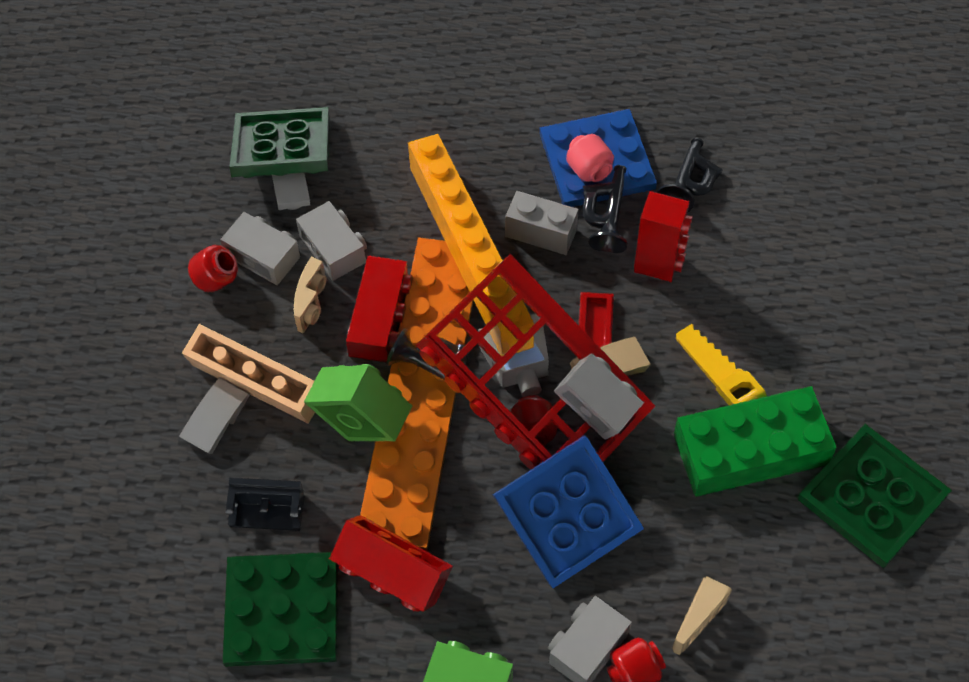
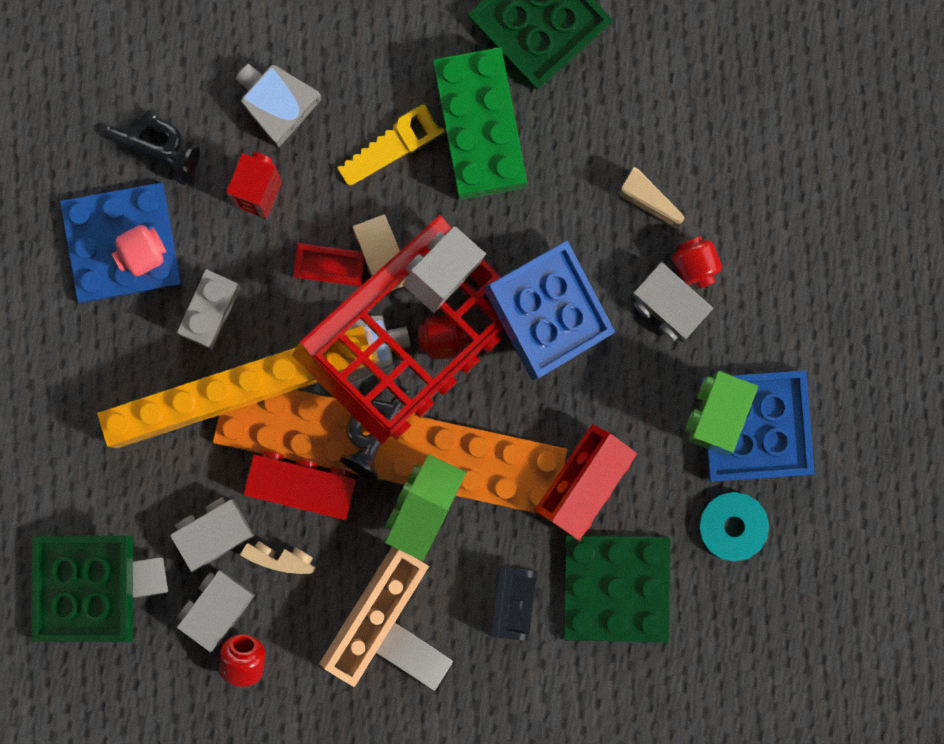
camera: 95 degrees left, 25 degrees up
(608, 237) = (213, 238): black piece -> none
(745, 266) = (277, 100): none -> light grey torso

